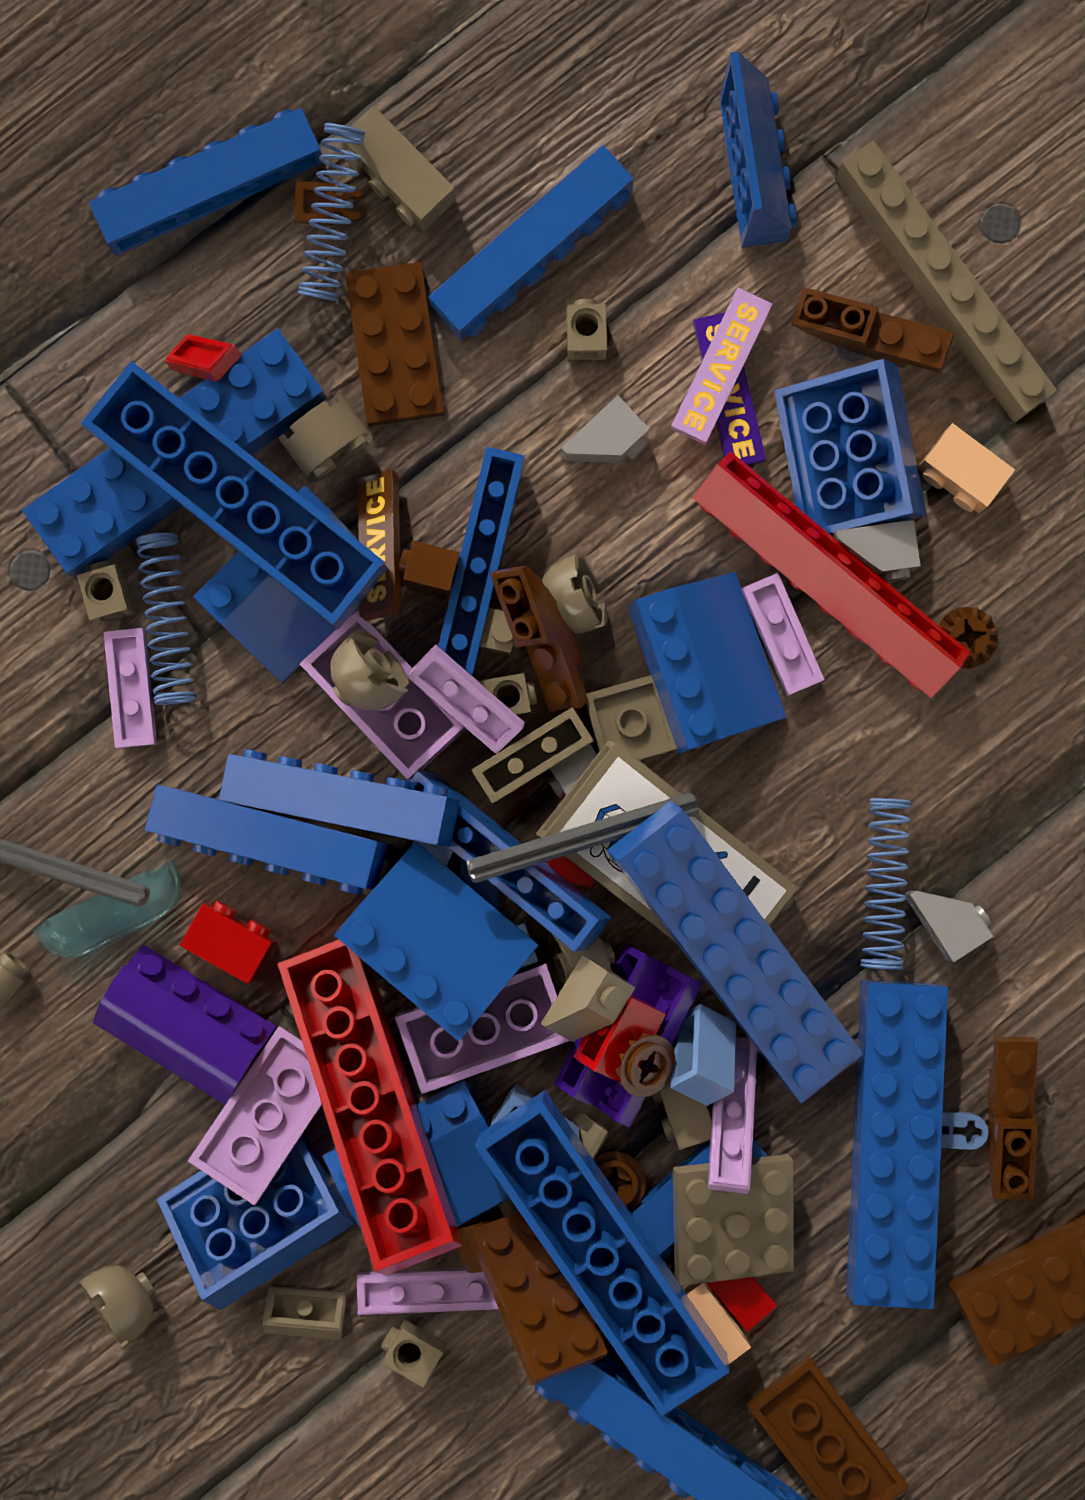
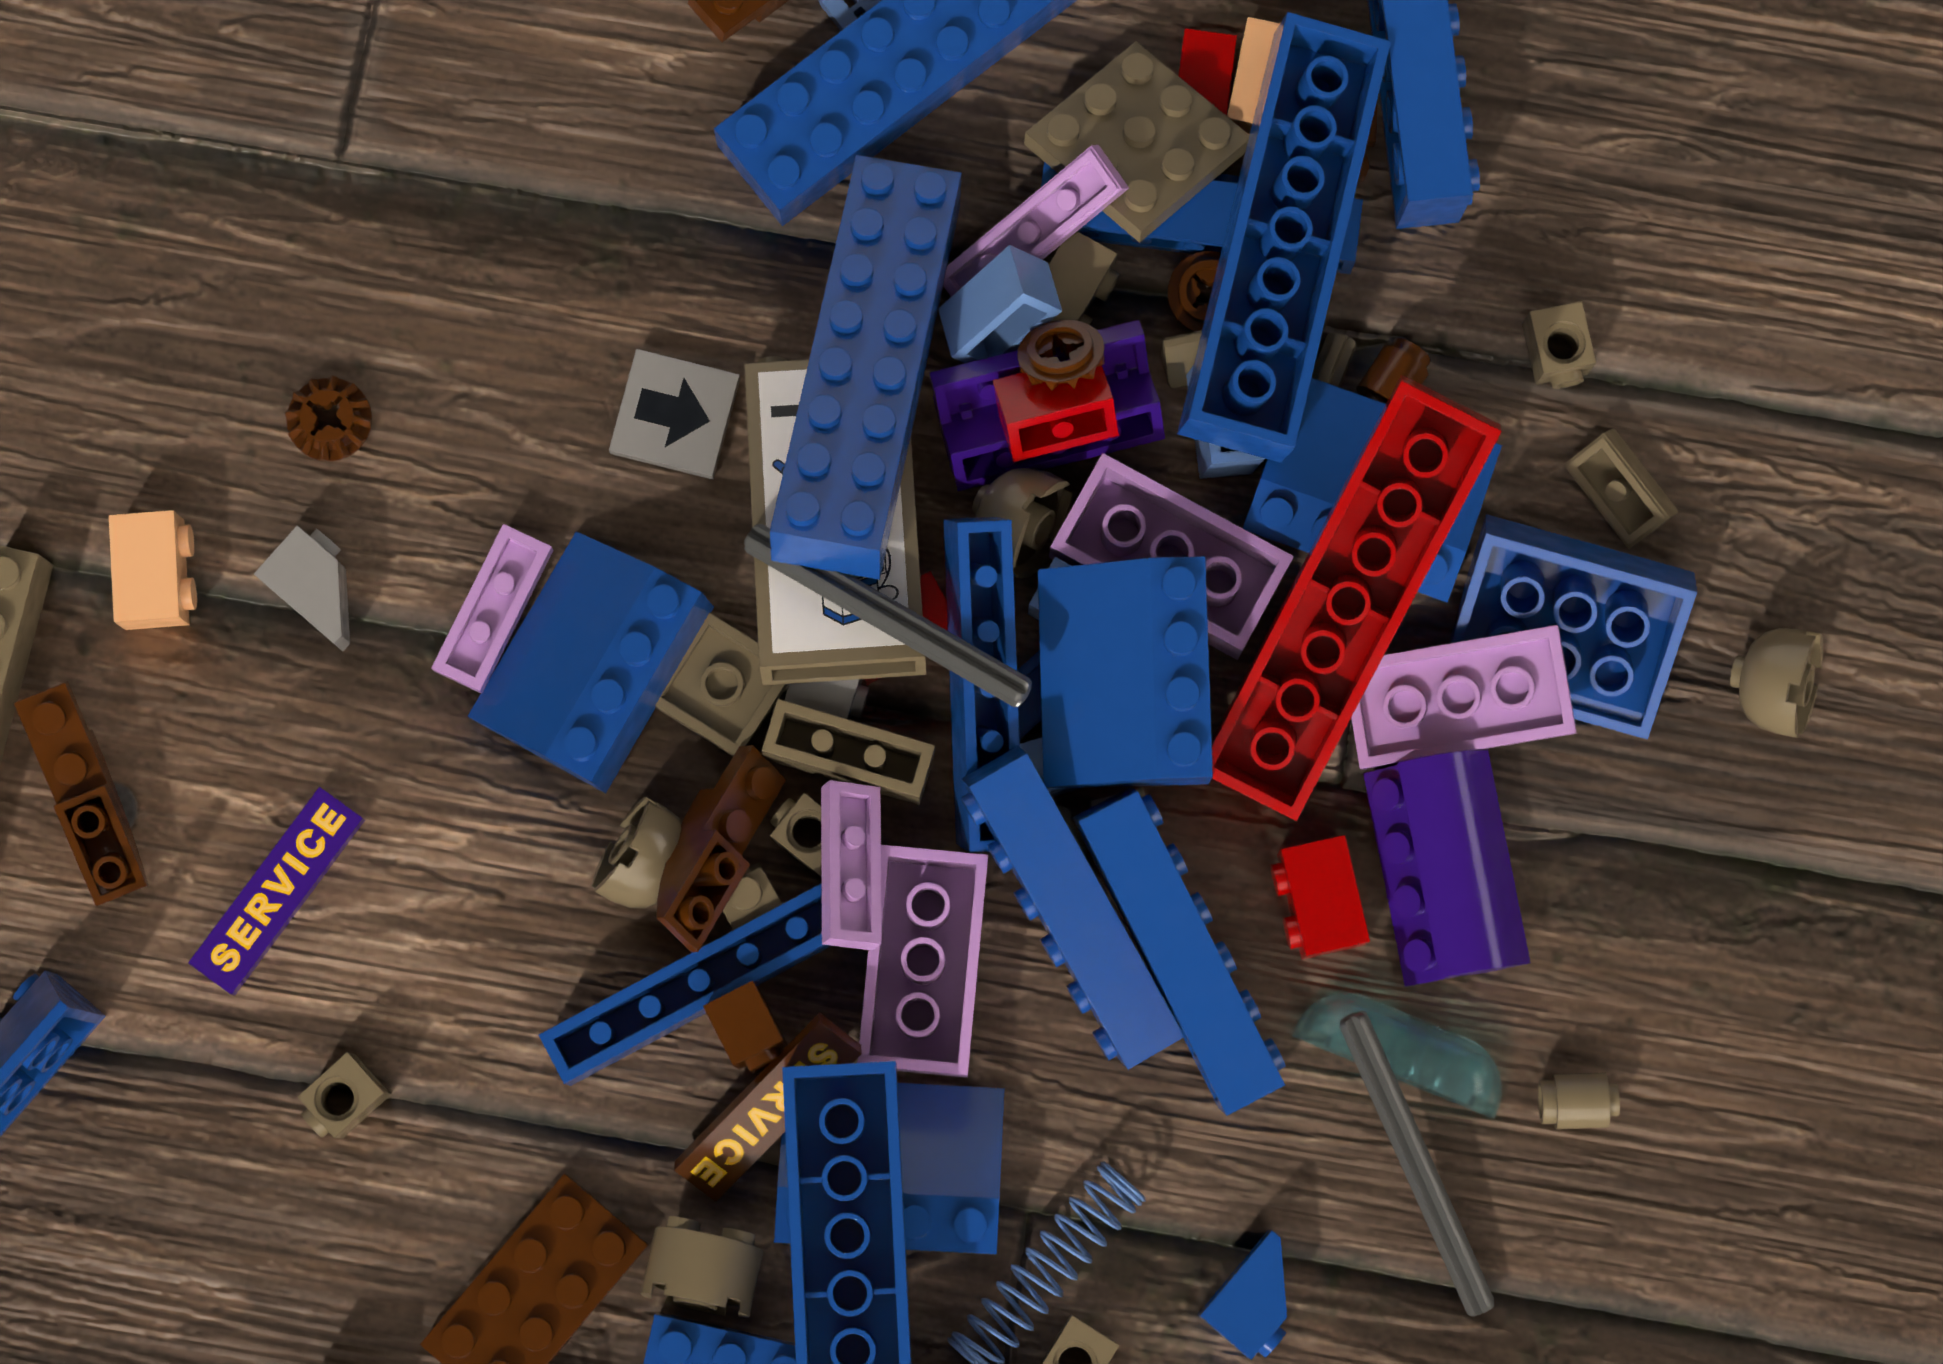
camera: 130 degrees left, 5 degrees down
(53, 711) = (1252, 1301): none -> blue slope
(130, 688) = (1153, 1242): lavender plate -> none
(365, 674) = (916, 987): dark tan cylinder -> none
(423, 1291) = (1479, 376): lavender tile -> none
(532, 244) = (296, 1240): blue brick -> none
(535, 1300) = (1390, 263): reddish brown plate -> none
(587, 1001) = (1048, 467): dark tan slope -> none
(608, 436) = (436, 971): light grey slope -> none
(721, 366) = (258, 918): lavender tile -> none
(805, 827) = (674, 414): none -> light grey tile
(830, 575) = (386, 613): brick -> none
(851, 448) = (234, 706): blue slope -> none
(876, 804) = (587, 355): medium blue piece -> none
(951, 923) = (644, 182): light grey slope -> none

